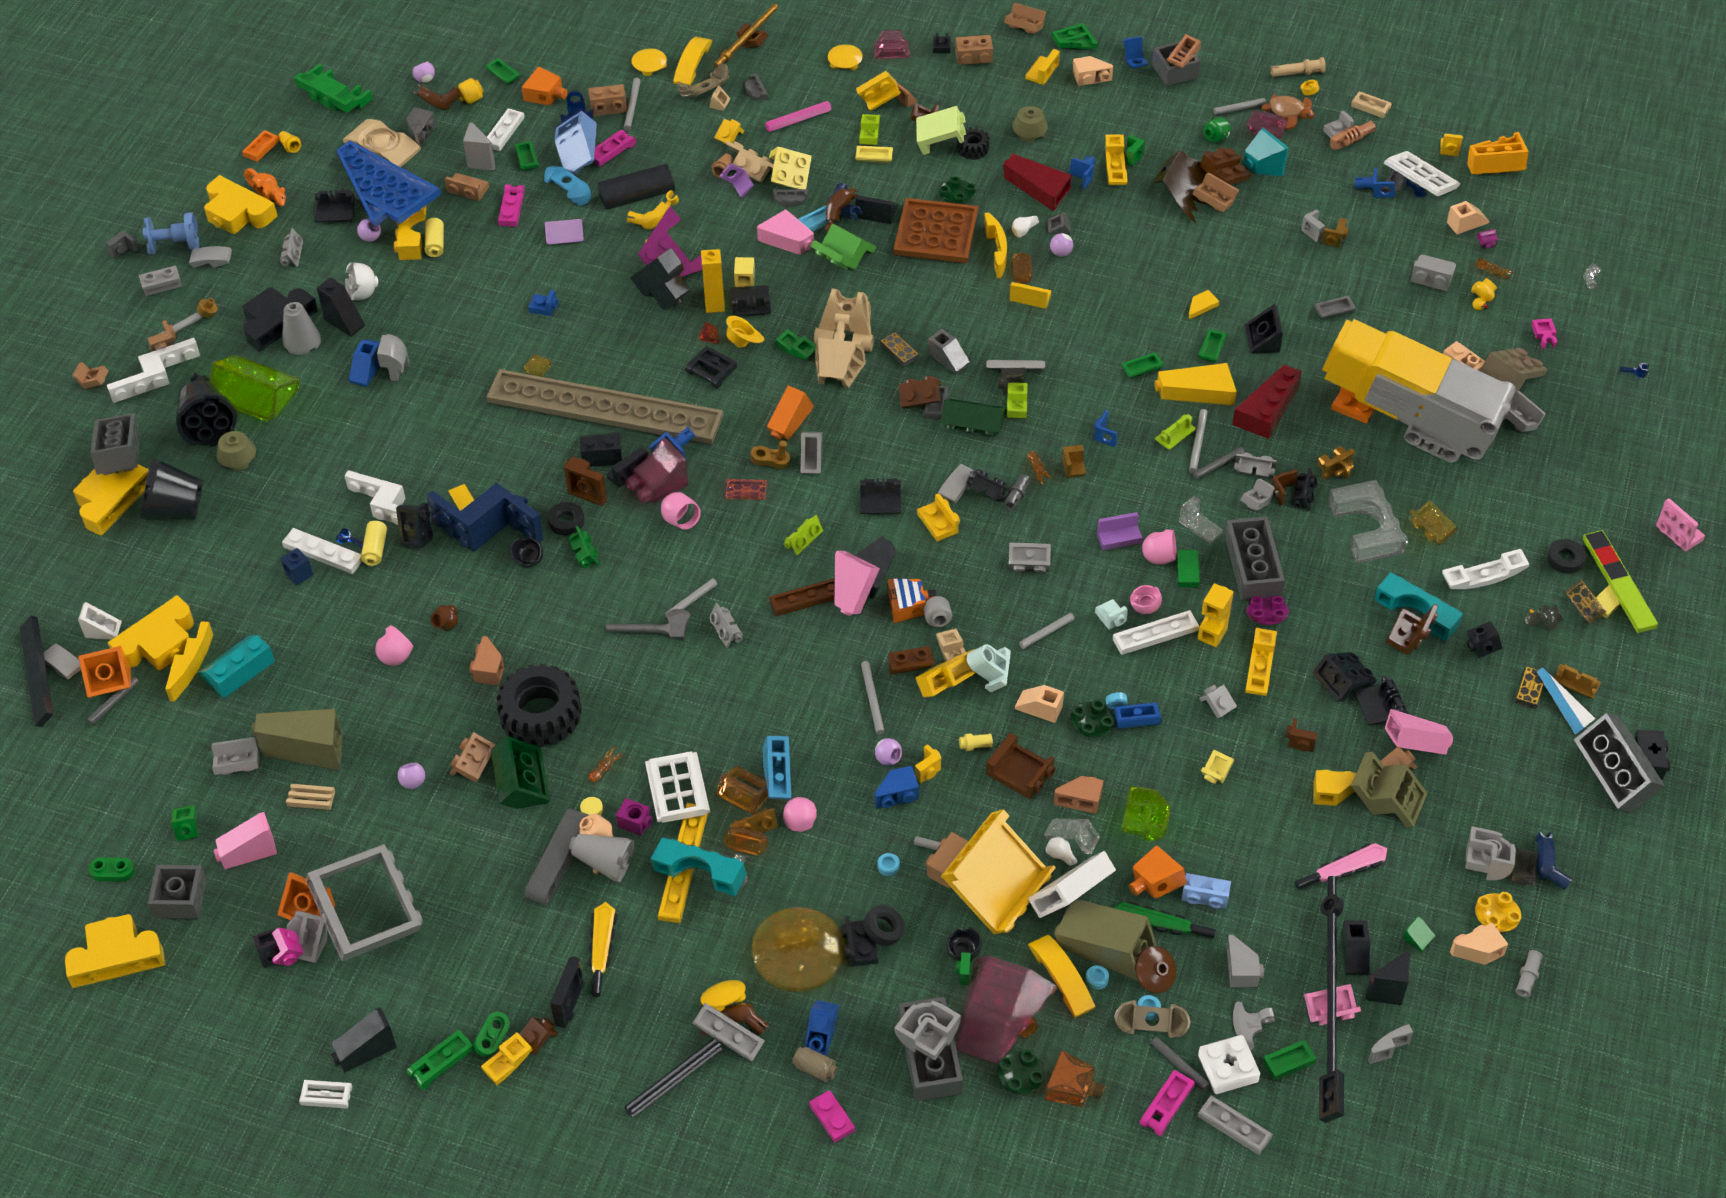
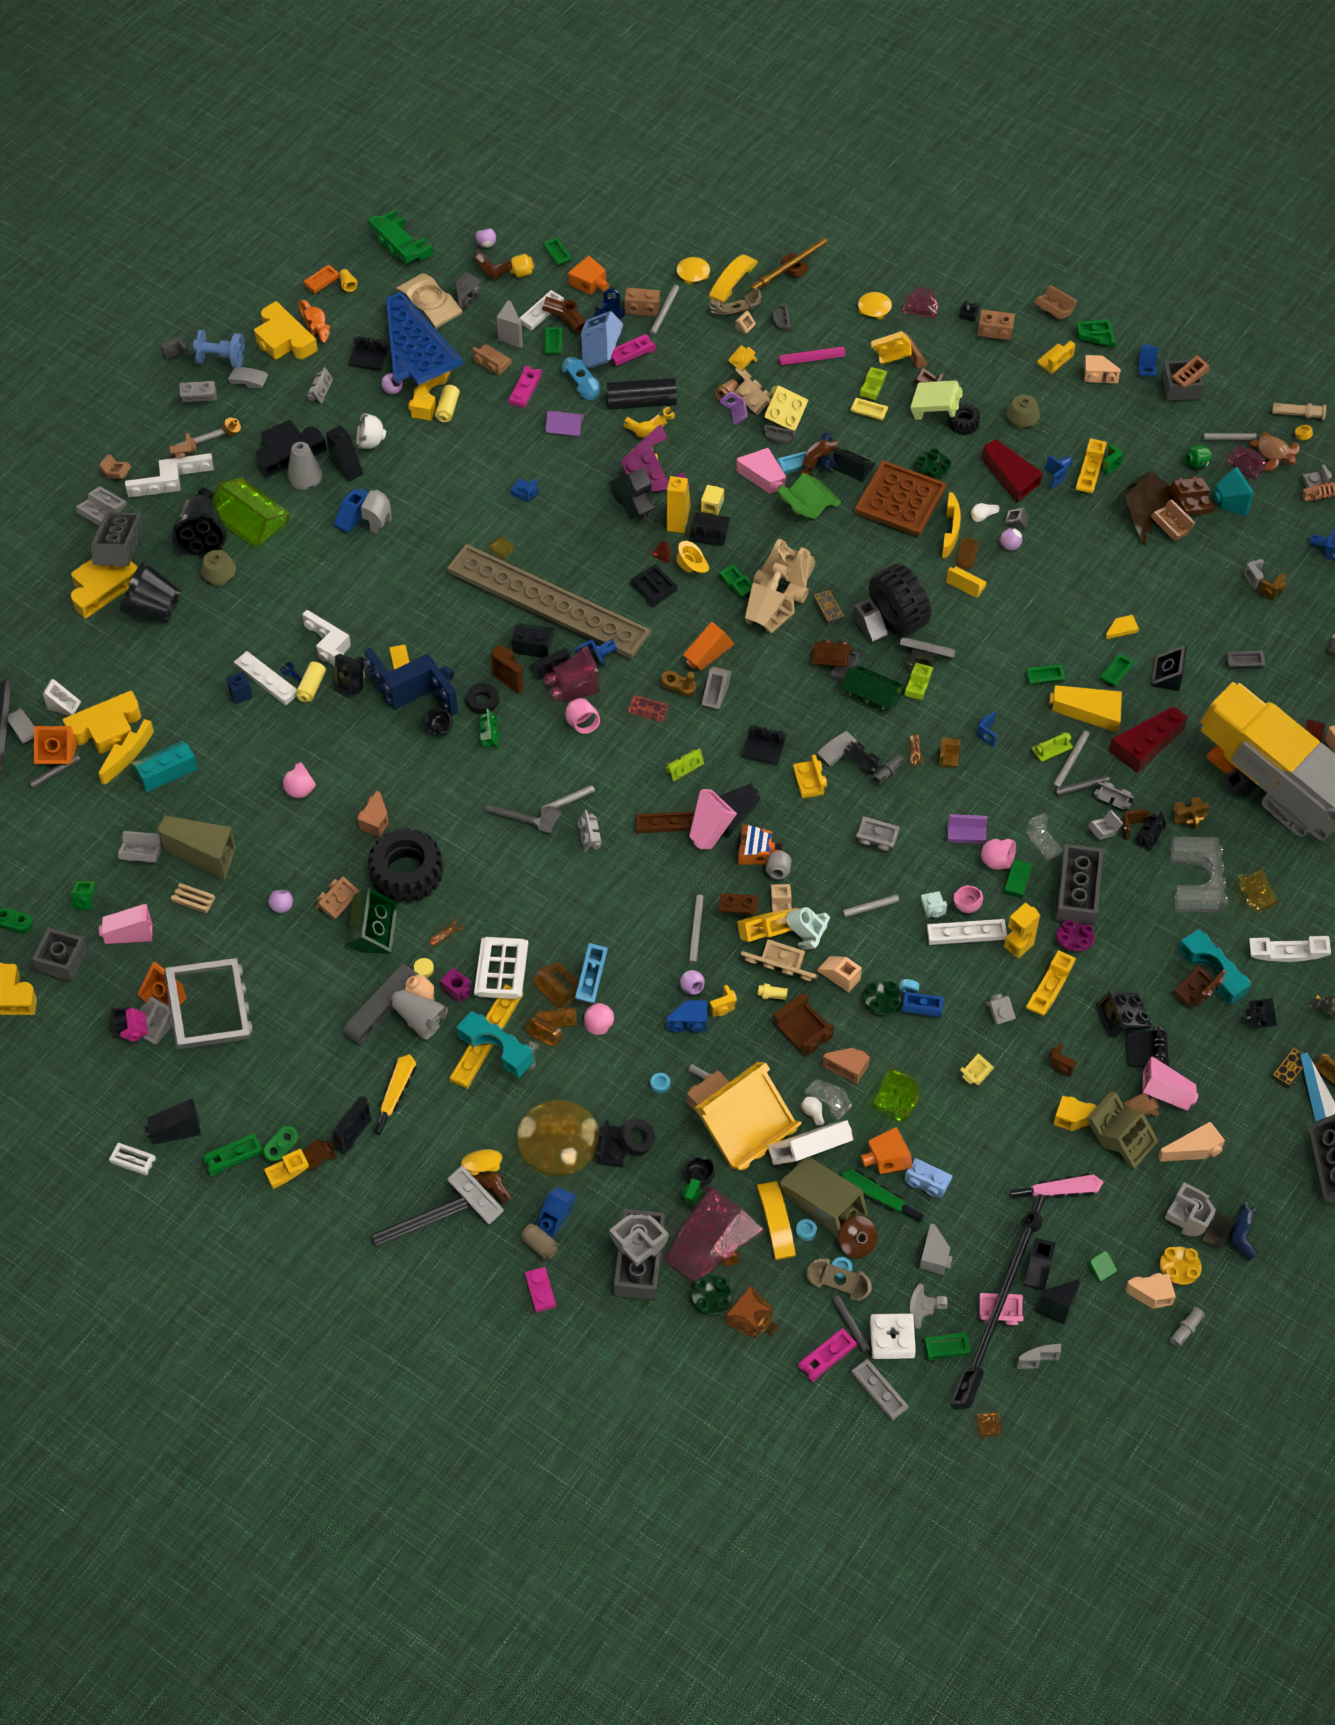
camera: 15 degrees right, 5 degrees up
(83, 416) = (99, 503): none -> light grey slope
(445, 617) = (351, 765): reddish brown animal -> none
(531, 125) = (566, 311): none -> reddish brown piece
(974, 703) = (783, 957): none -> tan bracket
(975, 322) = (900, 600): none -> black tyre
(1363, 1130) = (989, 1424): none -> clear orange tile
(1376, 423) = (1239, 783): none -> black brick
(1467, 787) = (1195, 1145): none -> light nougat slope

